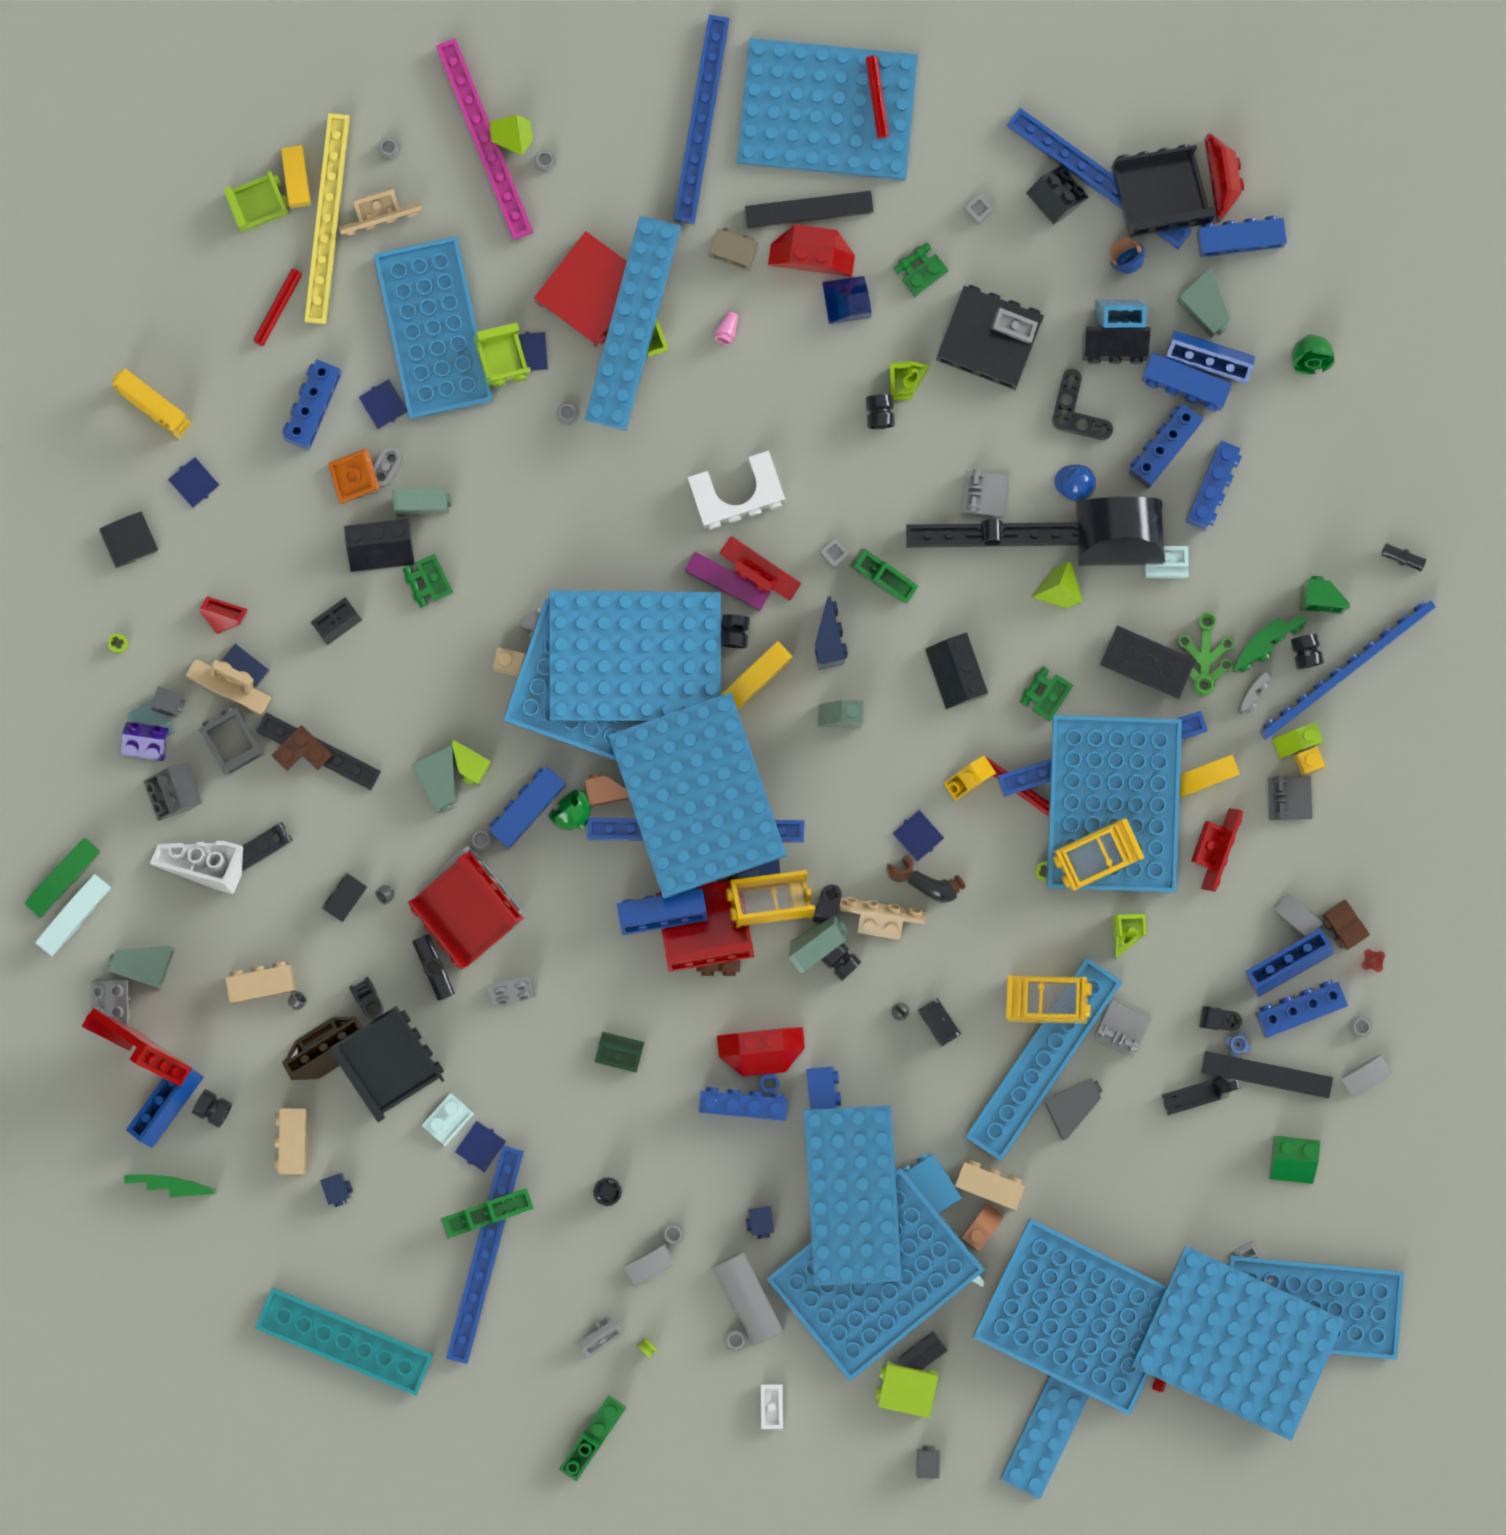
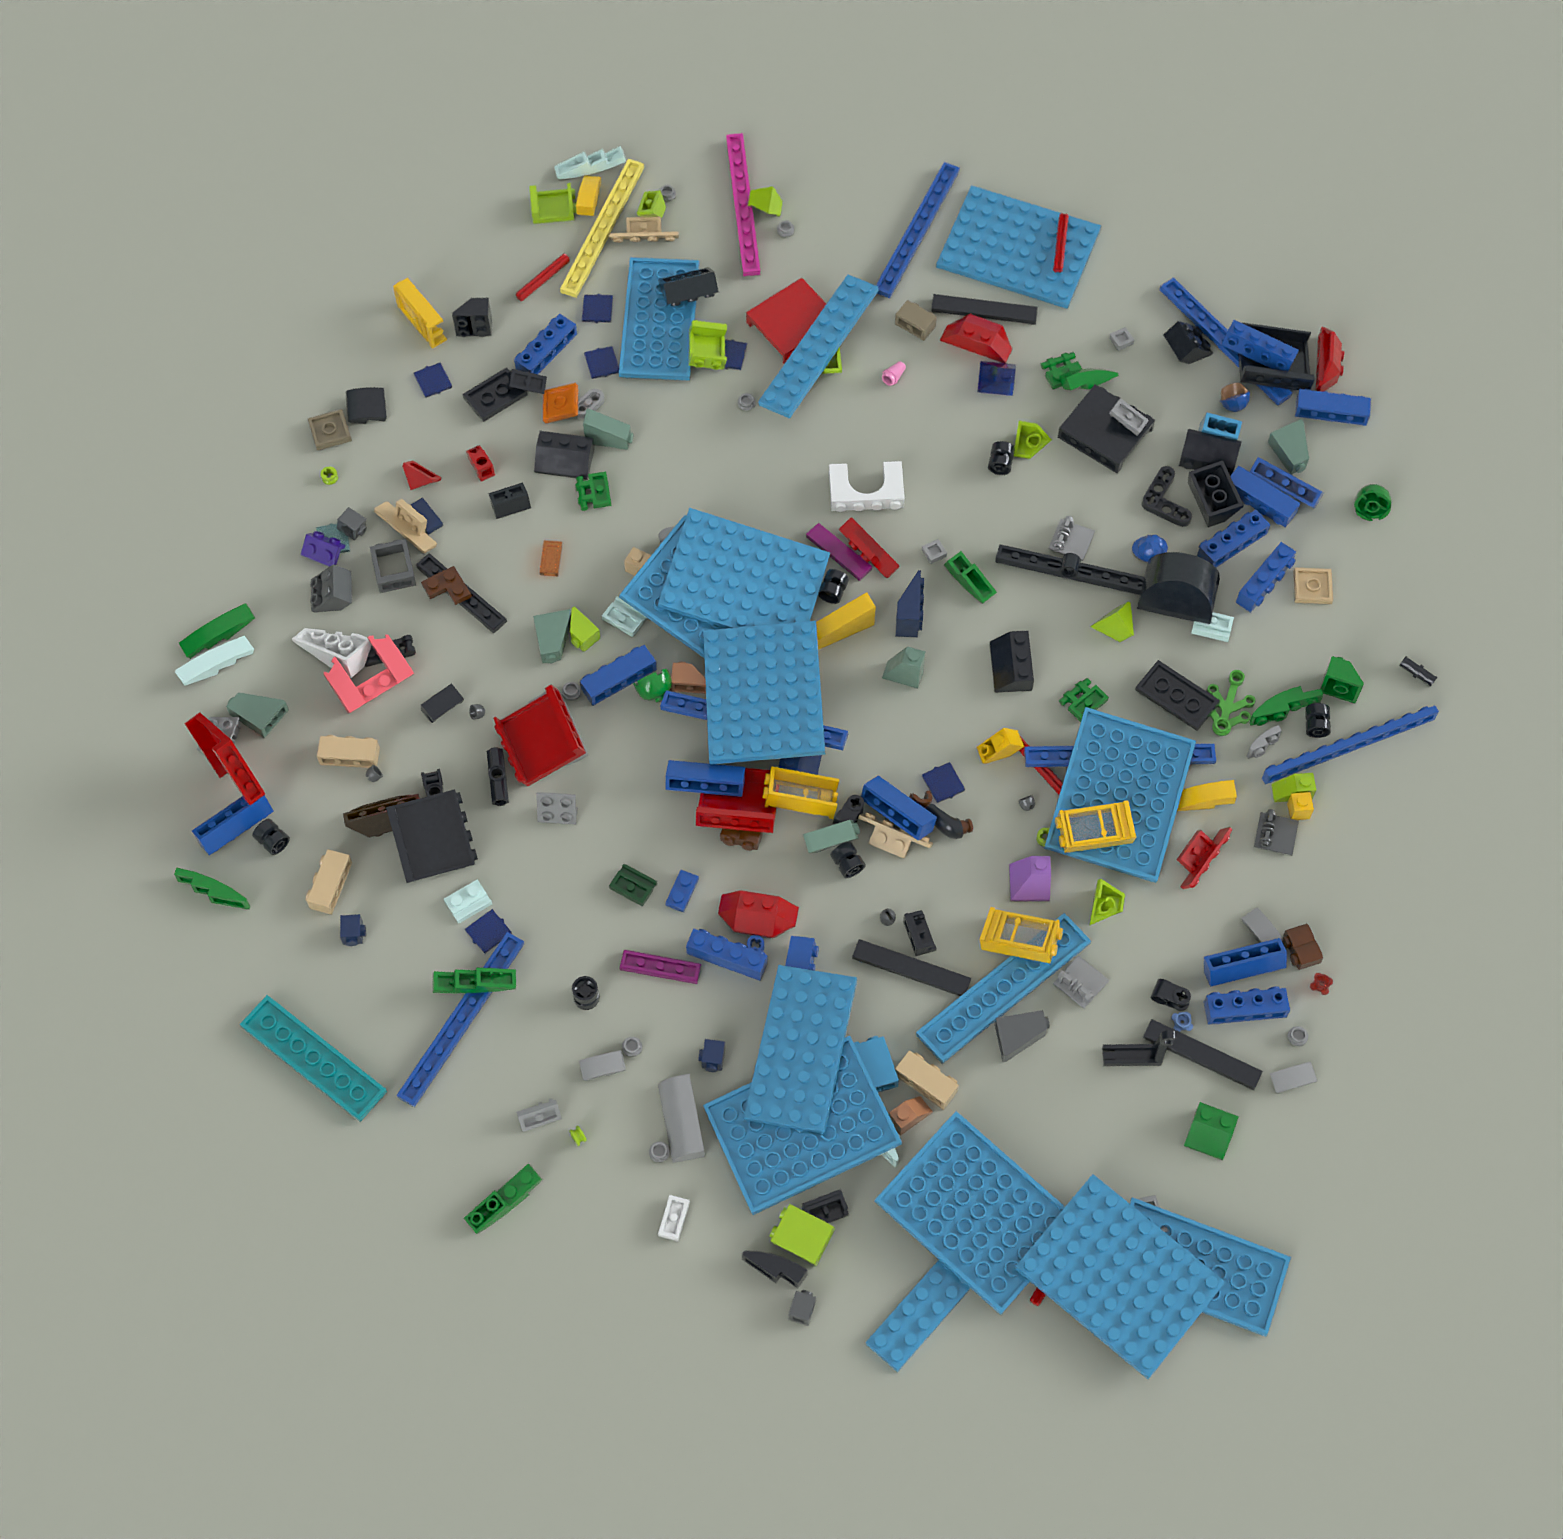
camera: 20 degrees right, 20 degrees down
(97, 584) = (329, 429): none -> dark tan plate
(218, 393) = (473, 318): none -> black slope
(273, 484) = (493, 395): none -> black plate
(279, 874) = (354, 697): none -> coral wedge
(283, 133) = (585, 165): none -> light aqua slope
(286, 580) = (481, 463): none -> red leg
(307, 462) = (527, 381): none -> black hinge
(355, 331) = (597, 308): none -> clear blue piece
(378, 178) = (652, 204): none -> lime slope
(405, 679) = (551, 558): none -> clear orange tile
(456, 279) = (689, 286): none -> black slope
(509, 734) = (623, 617): none -> light aqua plate
(673, 1043) = (682, 891): none -> blue plate
(675, 1136) = (660, 966): none -> magenta tile
(879, 887) = (898, 808): none -> blue brick
(890, 1428) = (776, 1267): none -> black slope
(940, 1063) = (911, 968): none -> black tile
(952, 276) = (1086, 378): none -> green slope
(1014, 836) = (1027, 803): none -> dark grey hinge
(1040, 927) = (1030, 879): none -> medium lavender slope
(1133, 394) = (1214, 493): none -> black slope
(1143, 188) = (1259, 346): none -> blue brick
(1266, 478) = (1313, 585): none -> tan tile

